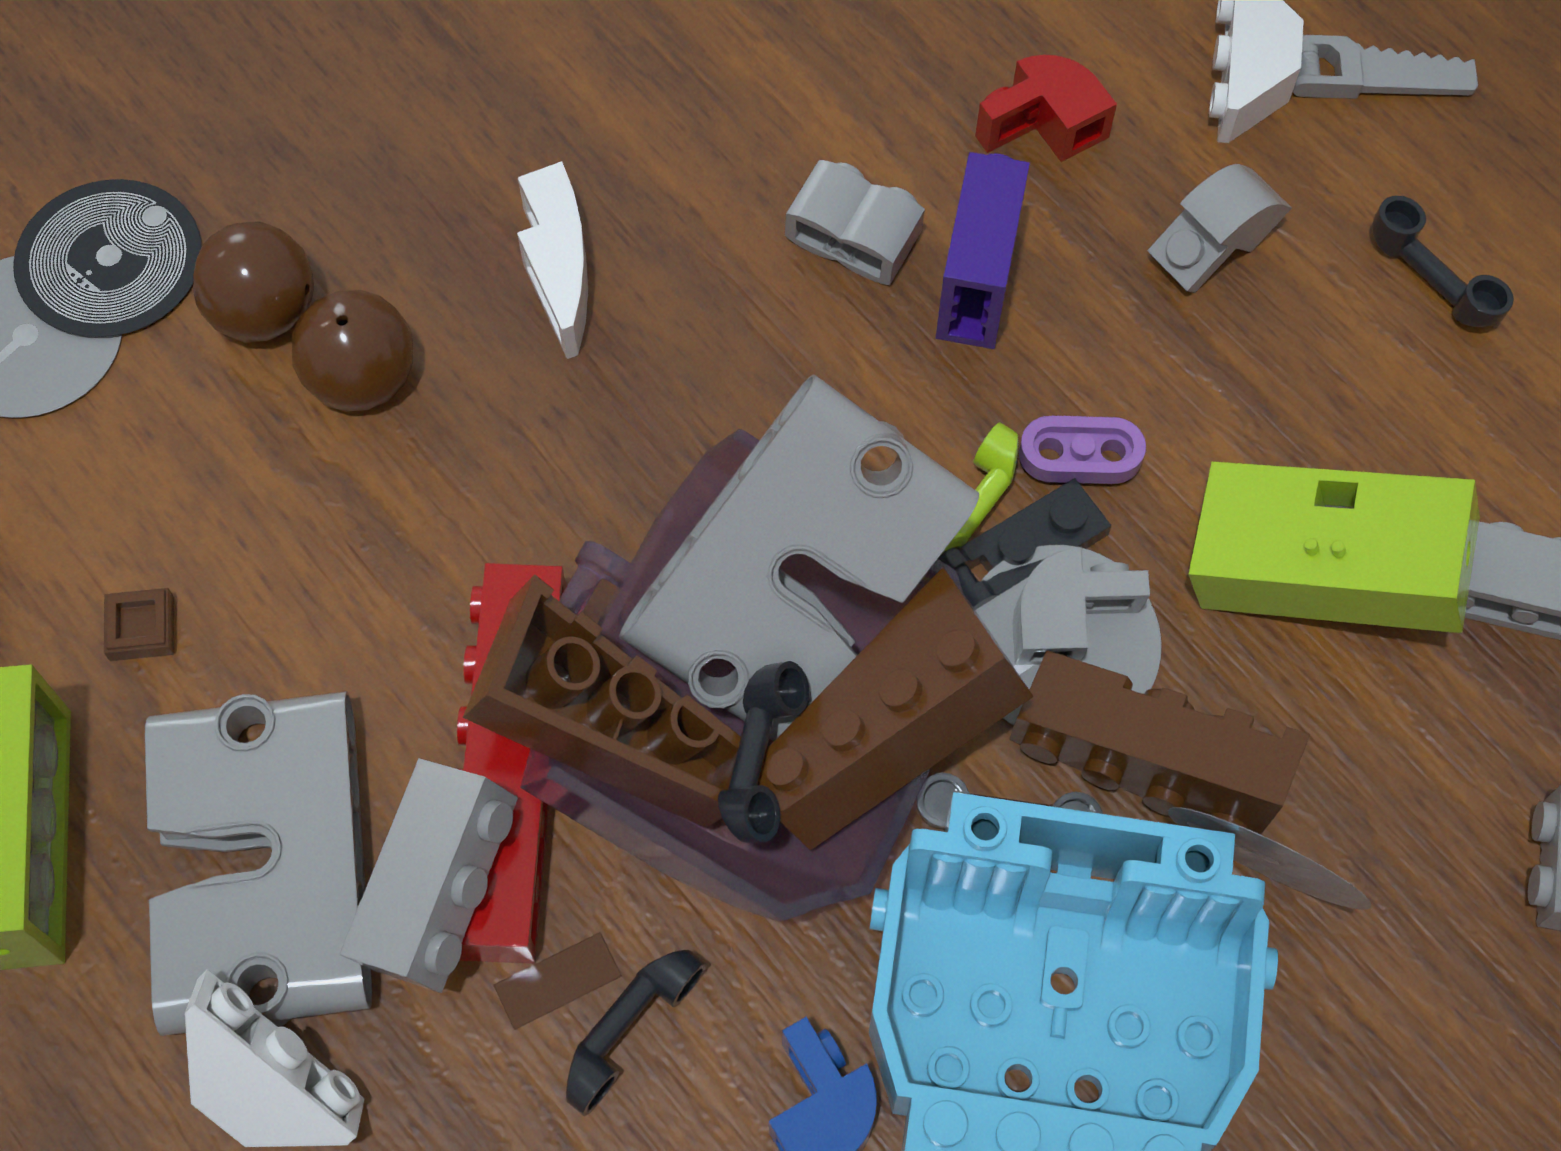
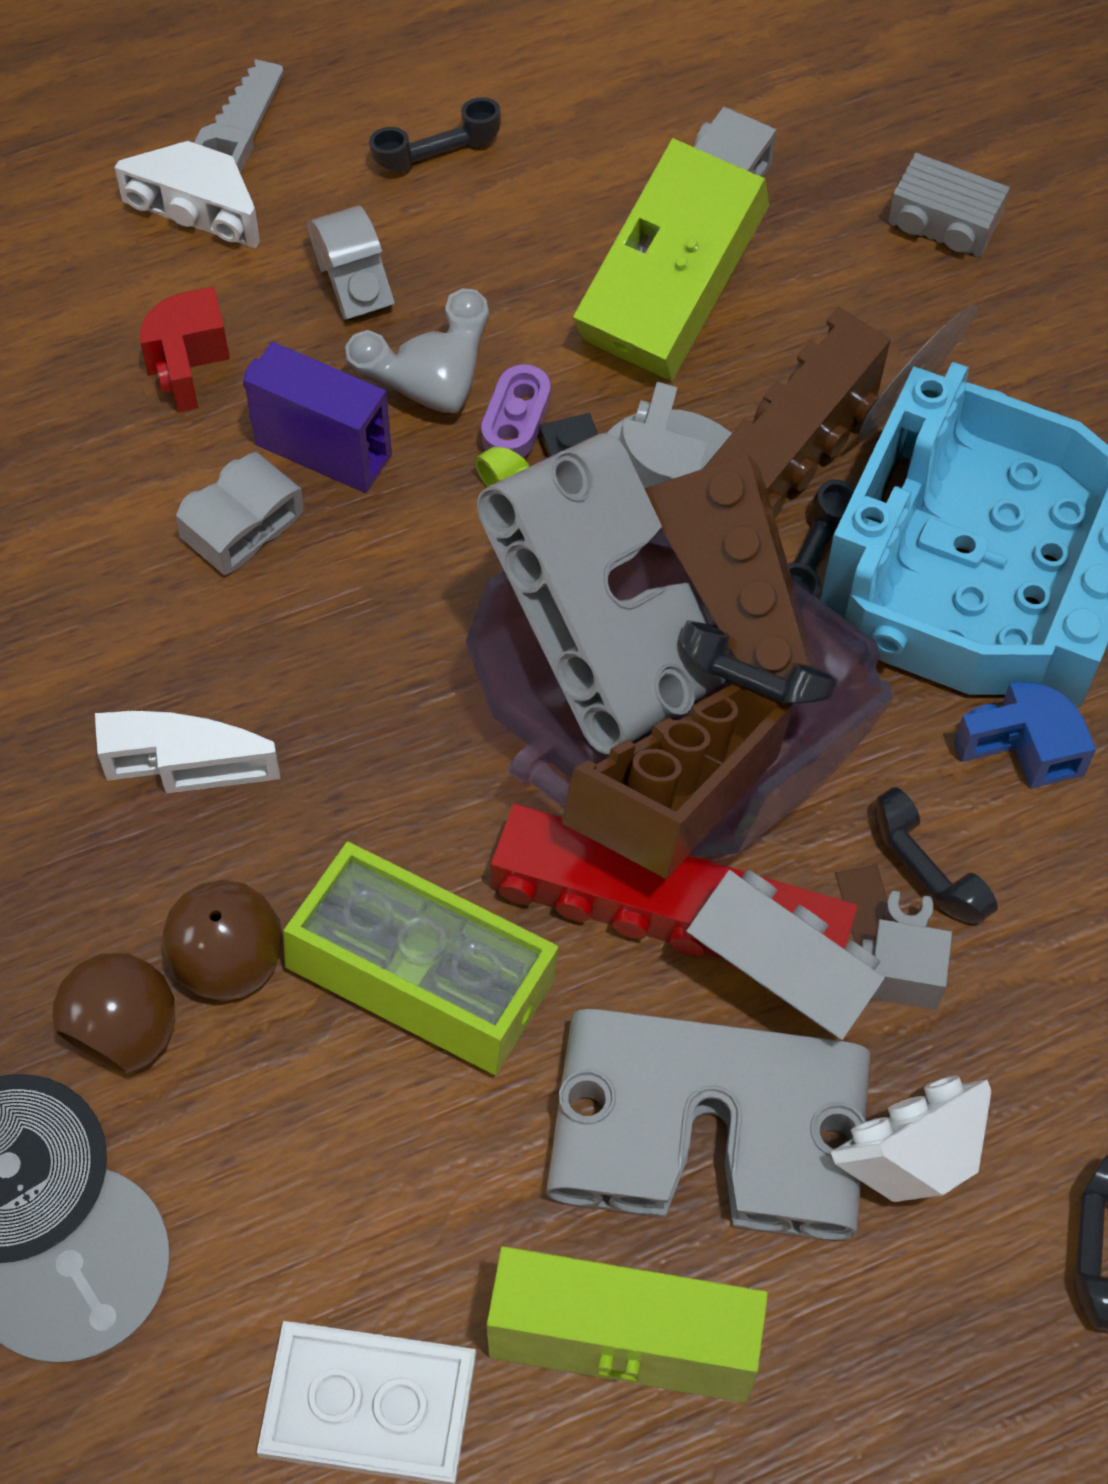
camera: 75 degrees left, 5 degrees down
(138, 624) = (436, 1199): reddish brown tile -> none
(372, 532) = (420, 957): none -> brick
(492, 1024) = (910, 956): none -> light grey brick
(1106, 346) = (433, 366): none -> light grey head

